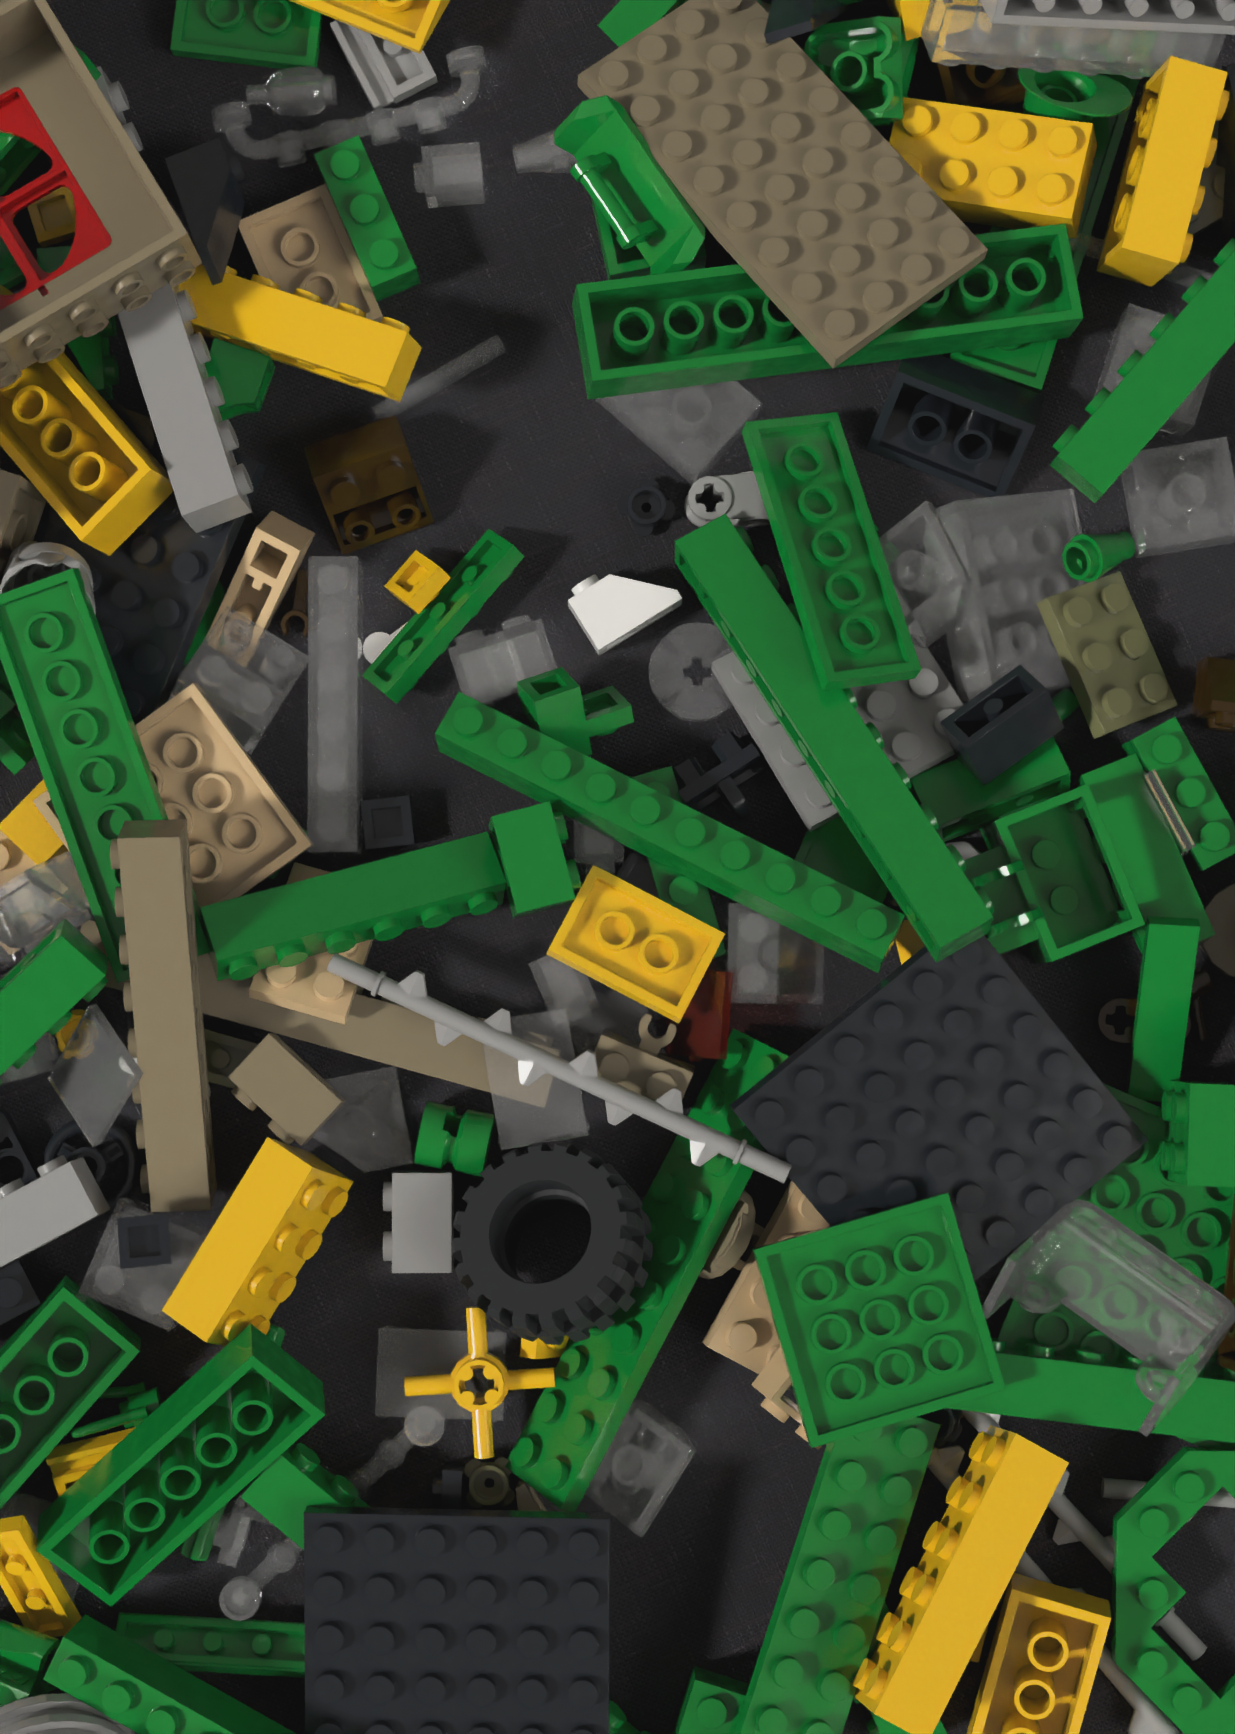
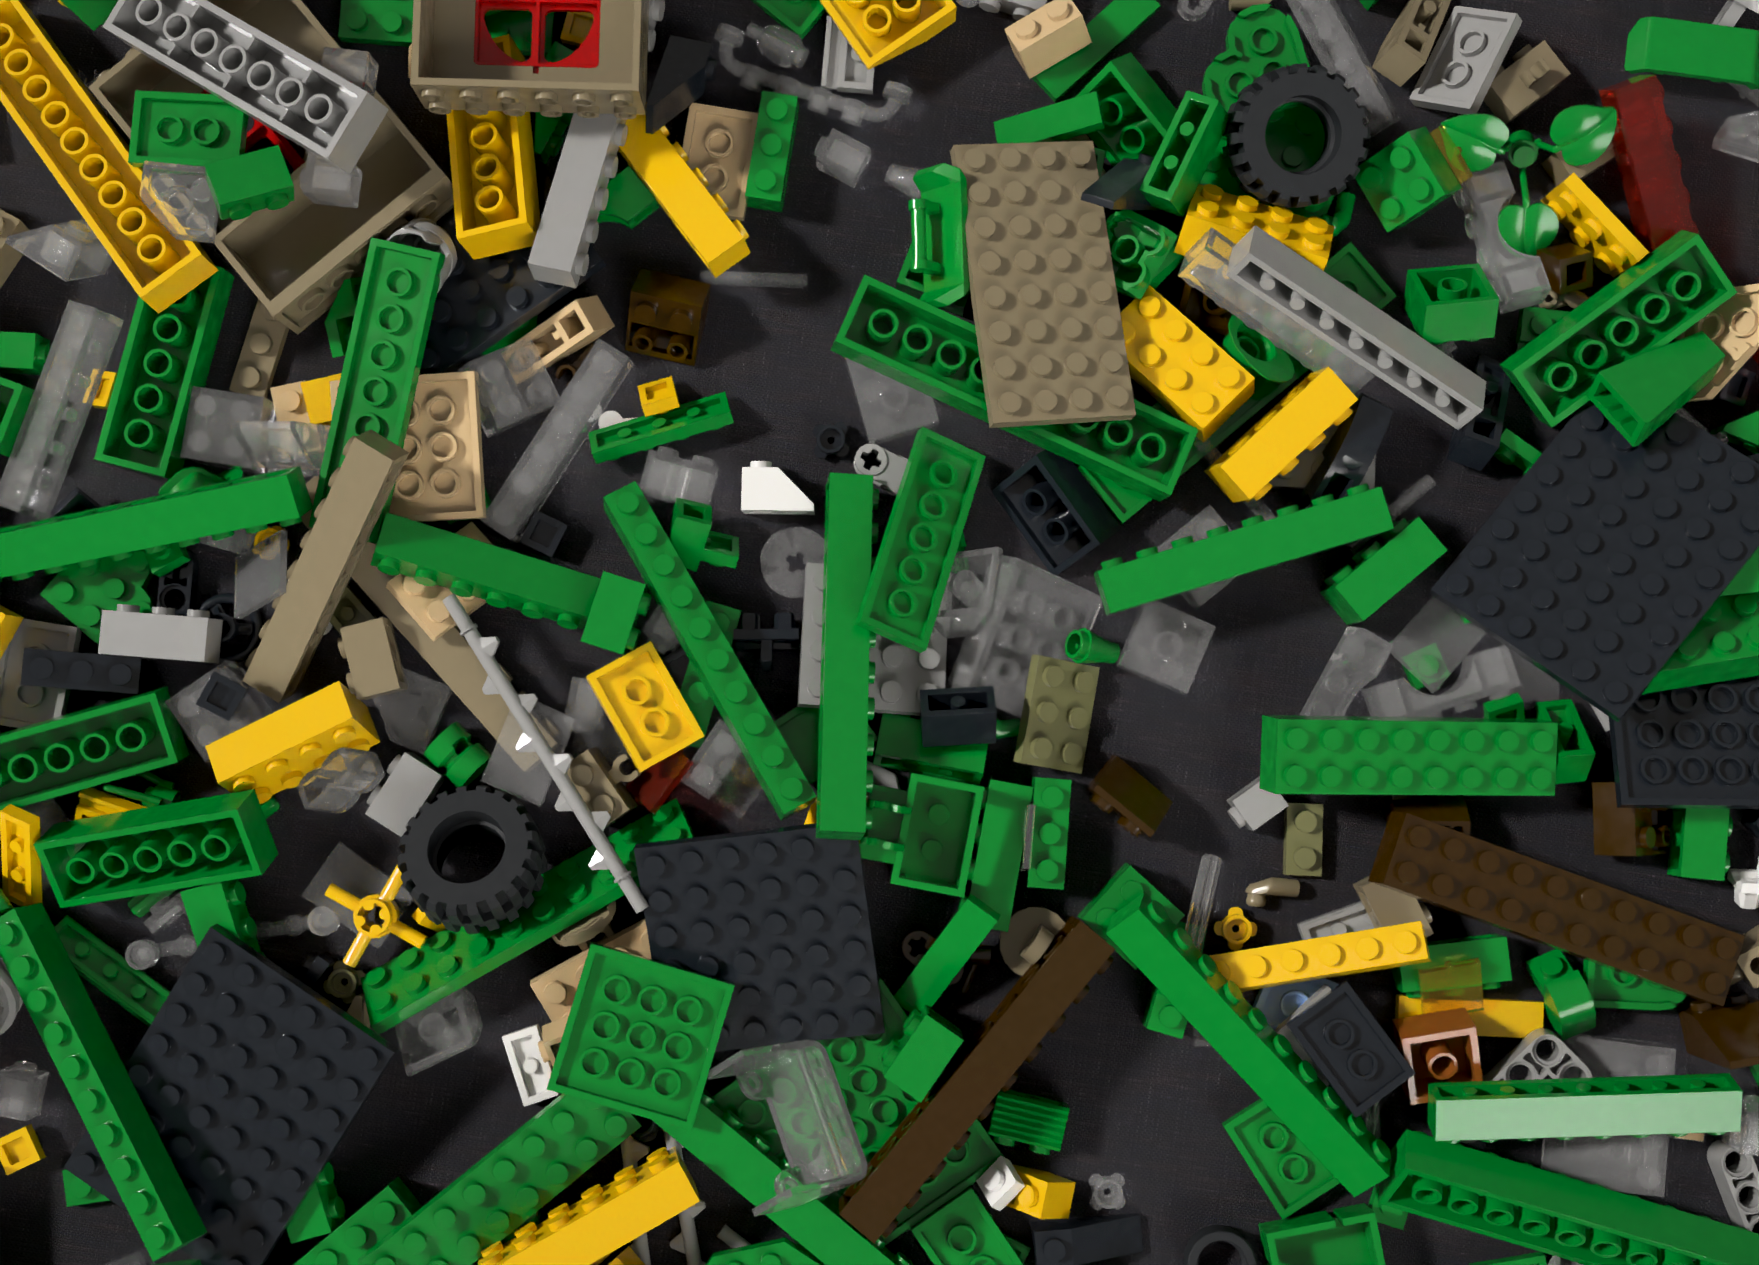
camera: 30 degrees right, 0 degrees up
(339, 1253) = (340, 780): none -> clear brick
(765, 1439) = (527, 1064): none -> white plate

